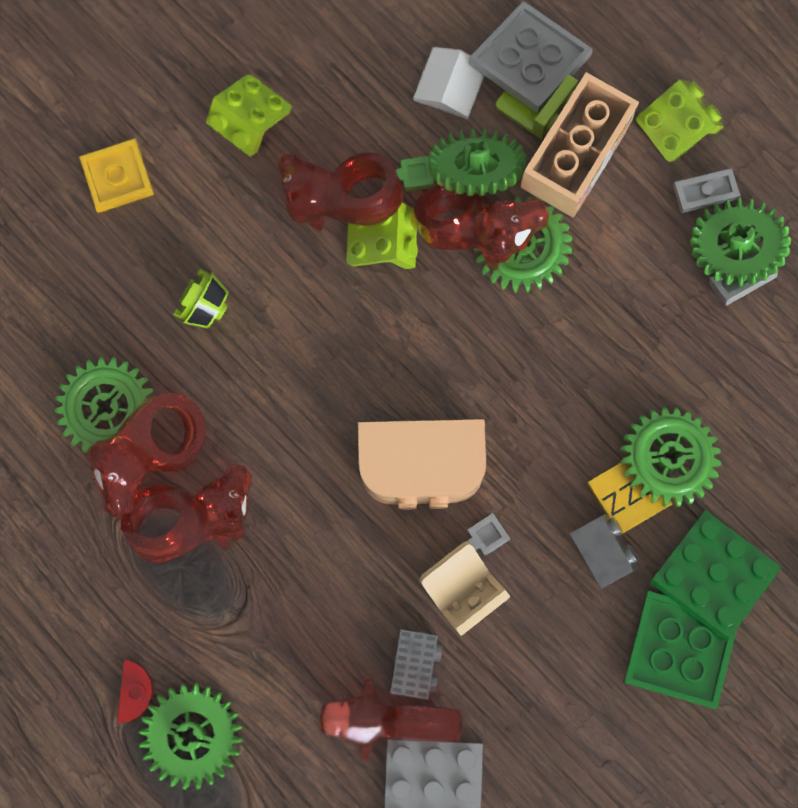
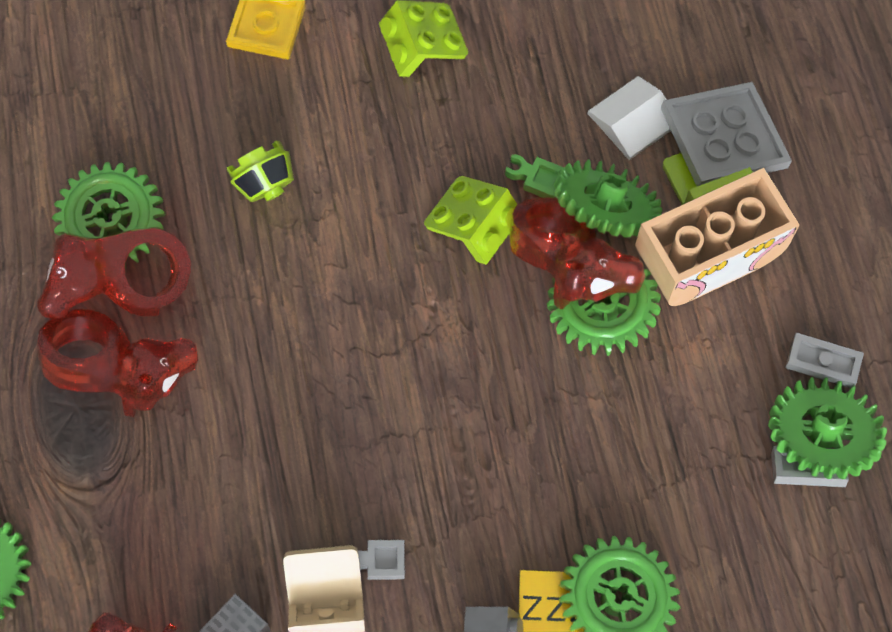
camera: 30 degrees right, 10 degrees down
(317, 193) = (435, 139): clear red animal -> none
(422, 461) = (366, 444): light nougat brick -> none
(679, 119) = (840, 276): lime bracket -> none

